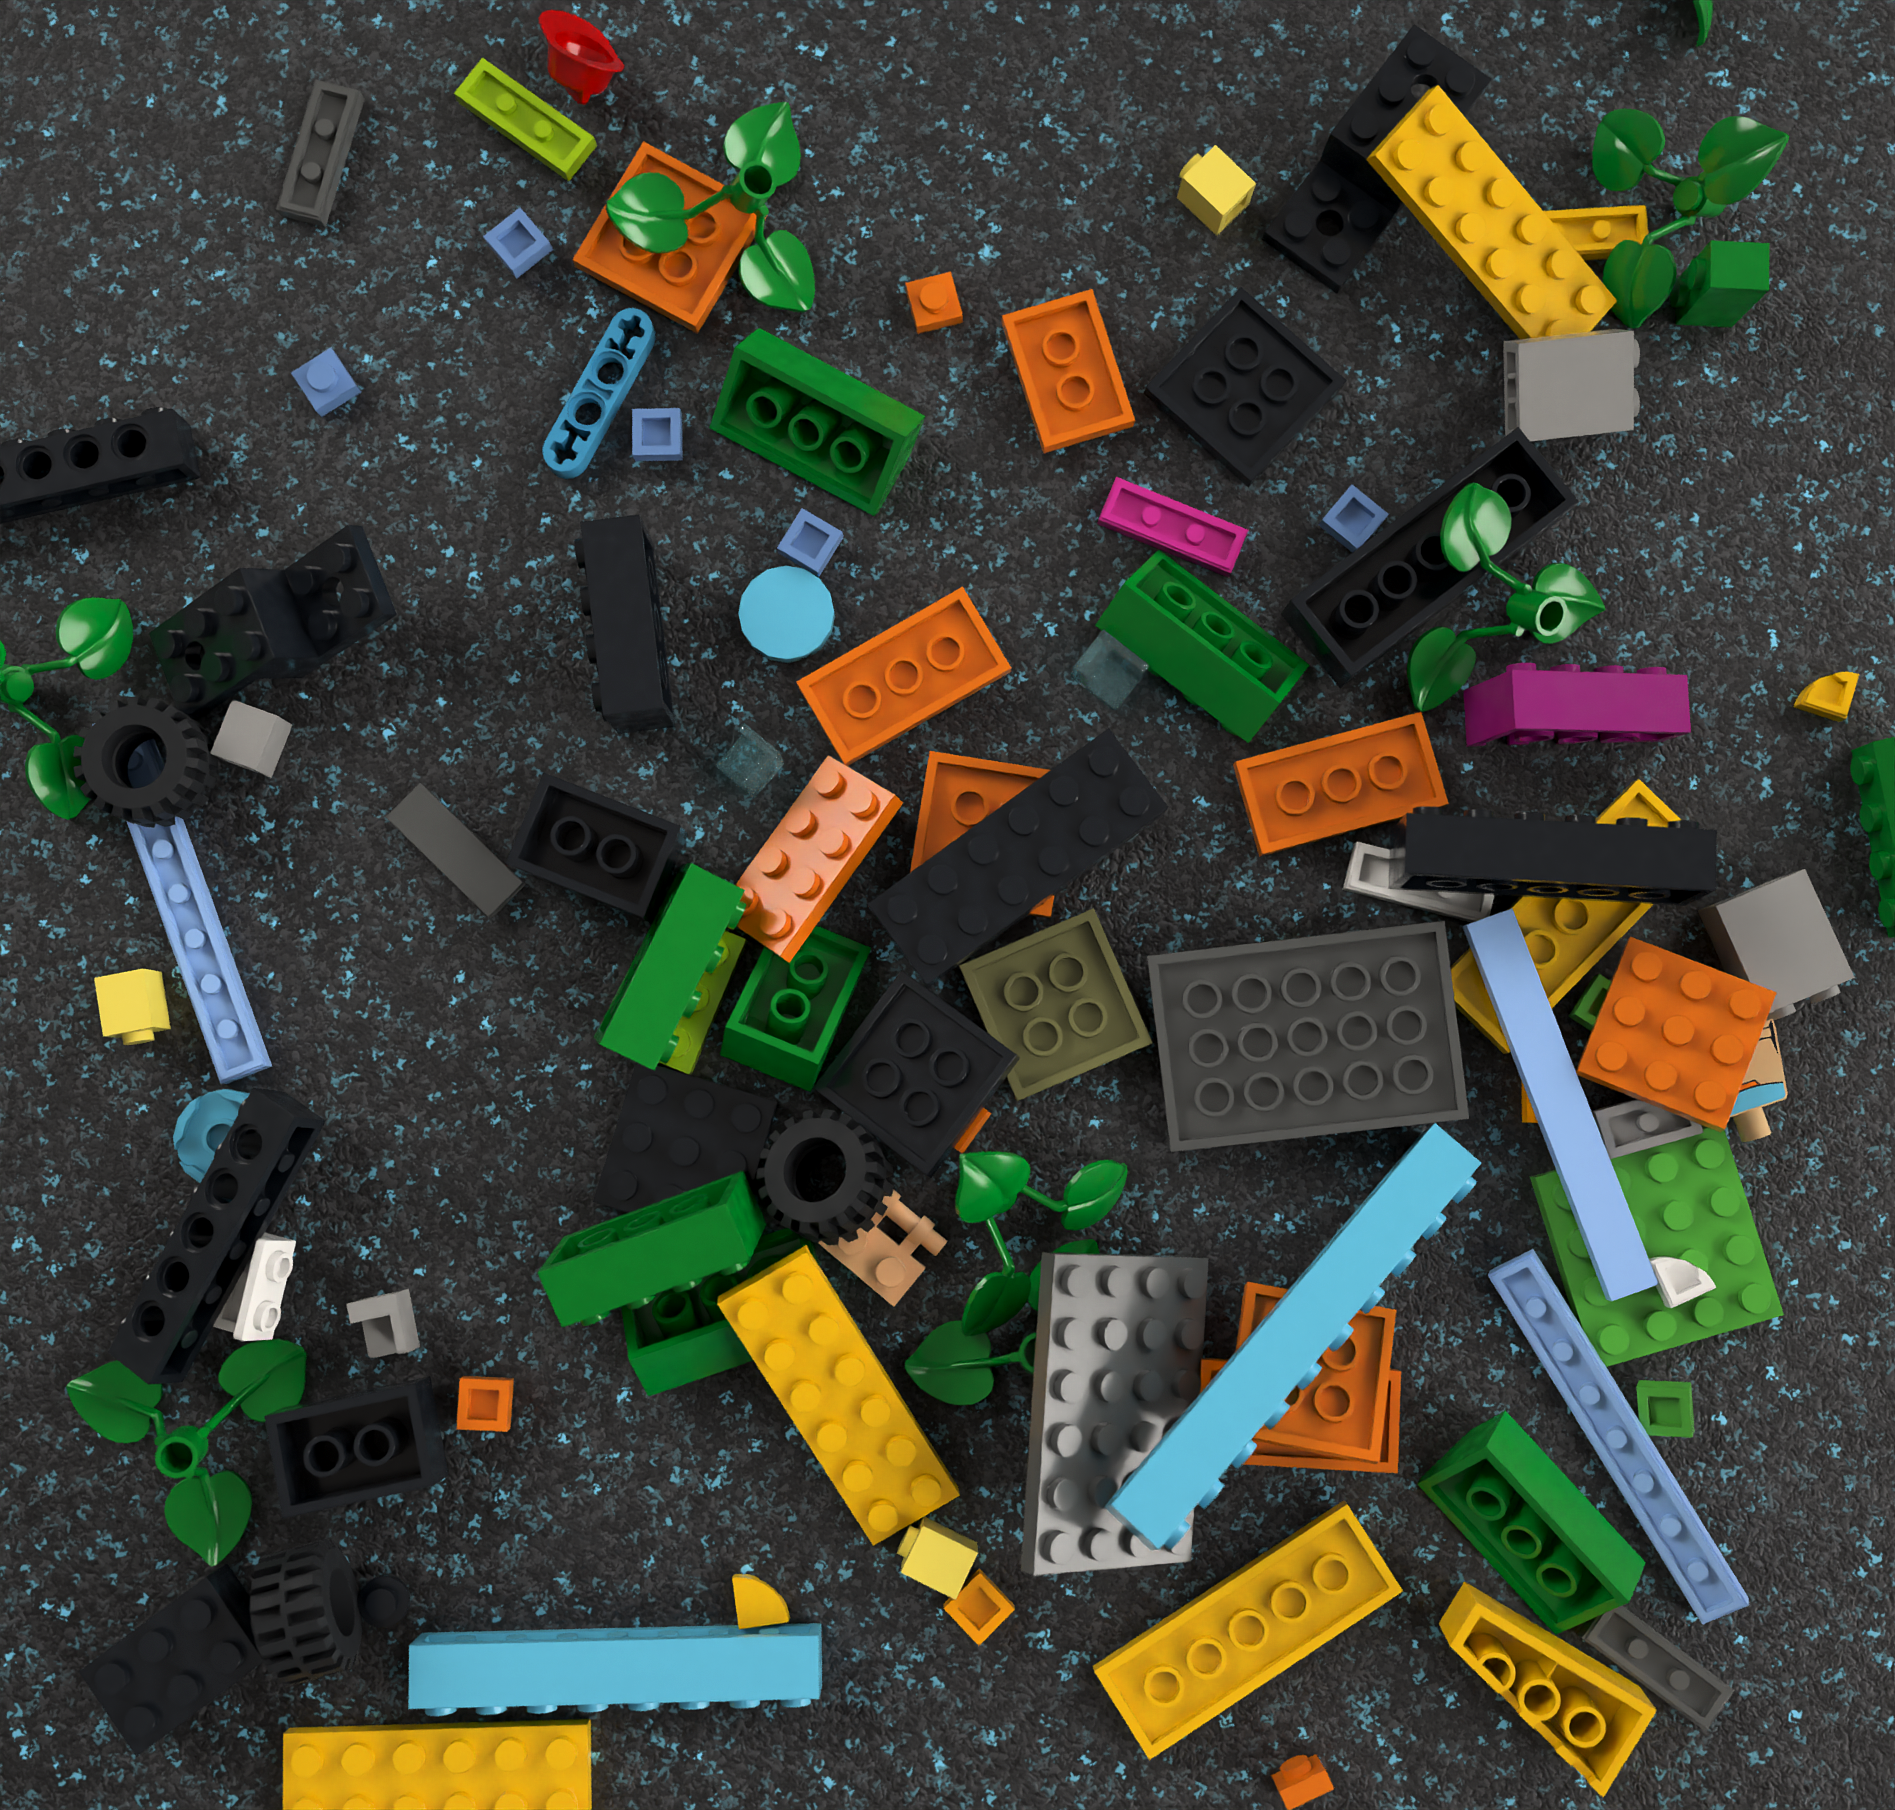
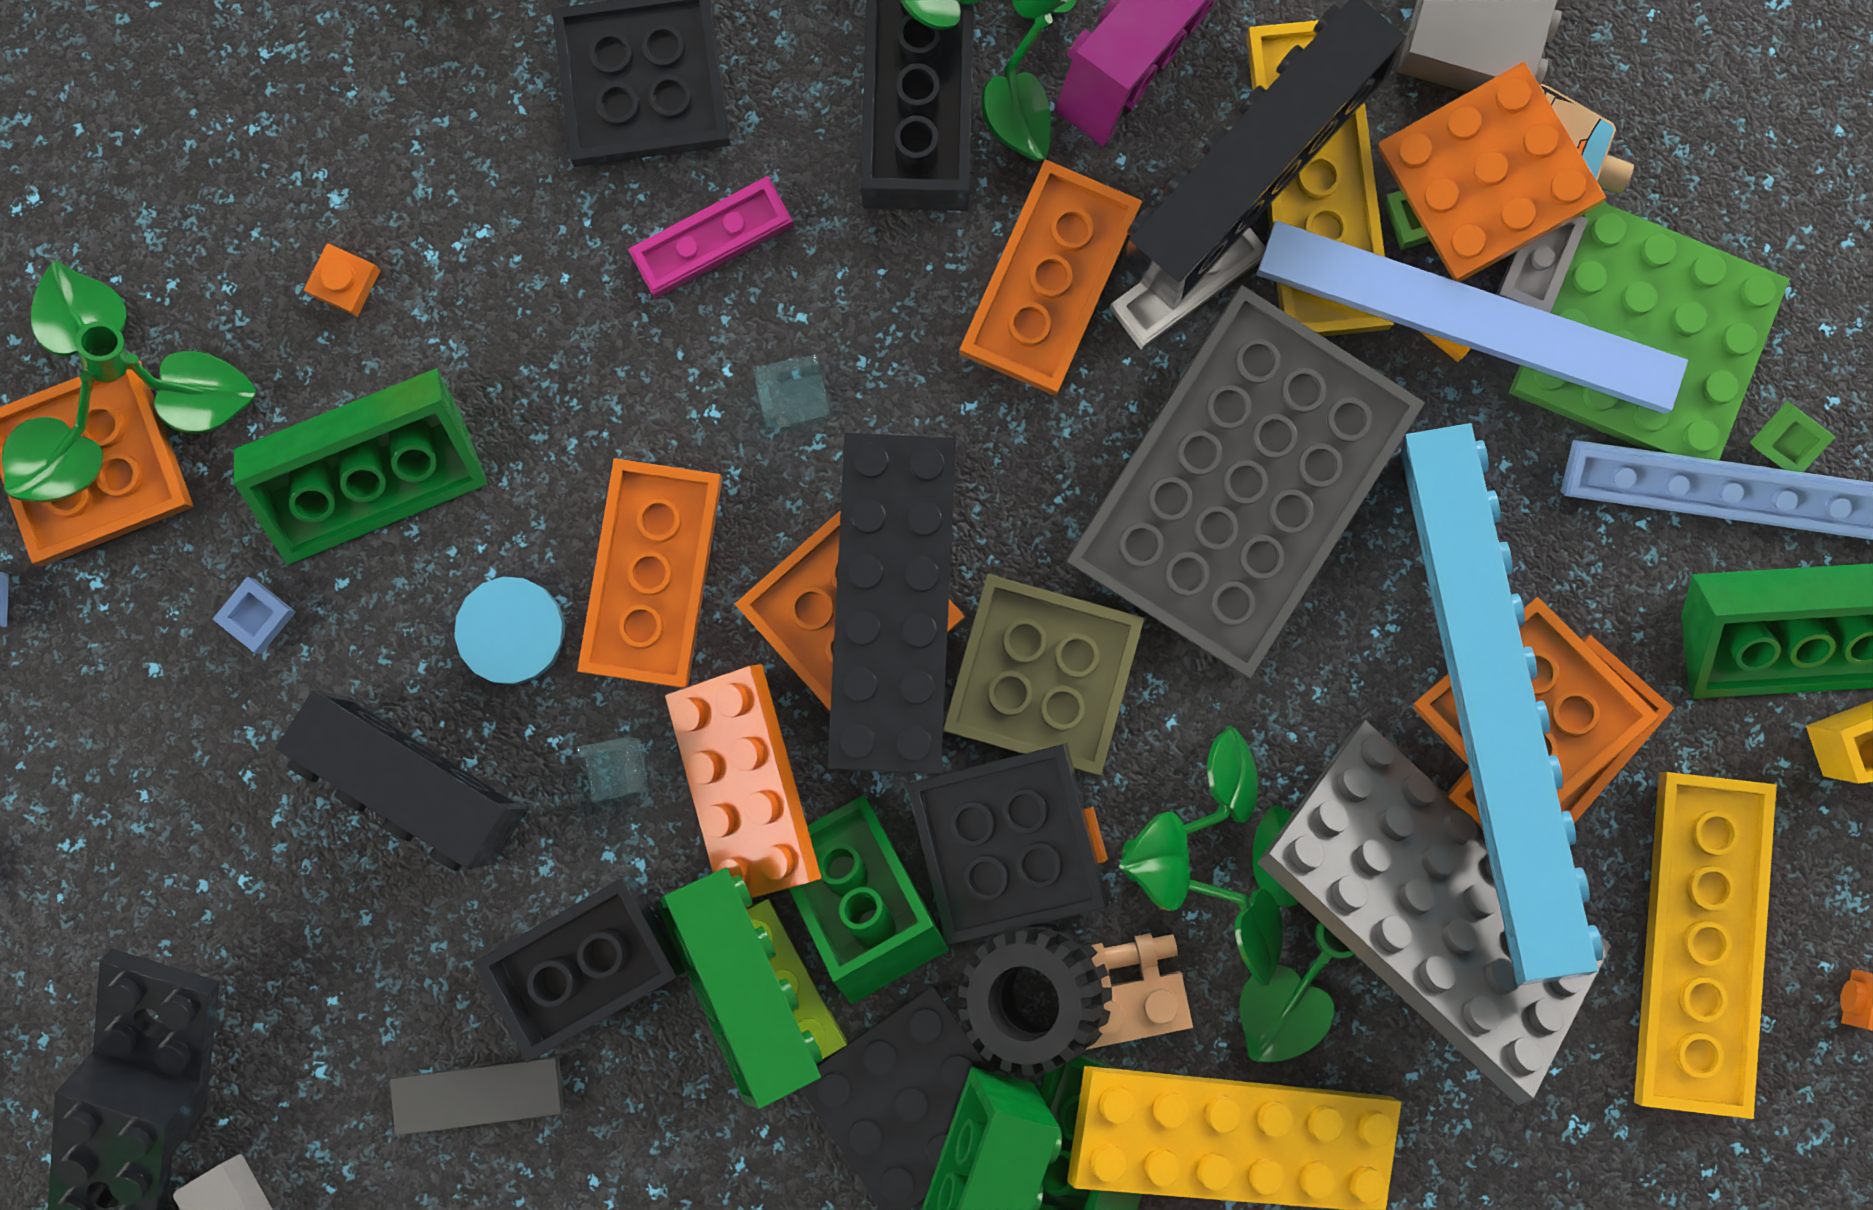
camera: 50 degrees left, 0 degrees up
(592, 390) = (166, 640): dark azure beam -> none
(810, 542) = (463, 558): medium blue plate -> none
(937, 1556) = (1439, 1164): light yellow brick -> none
(979, 1607) = (1509, 1161): light orange plate -> none
(1068, 371) = (500, 214): orange plate -> none
(1202, 645) = (836, 295): green slope -> none
(1353, 519) = (832, 80): medium blue plate -> none
(1679, 1280) = (1697, 340): white tile -> none

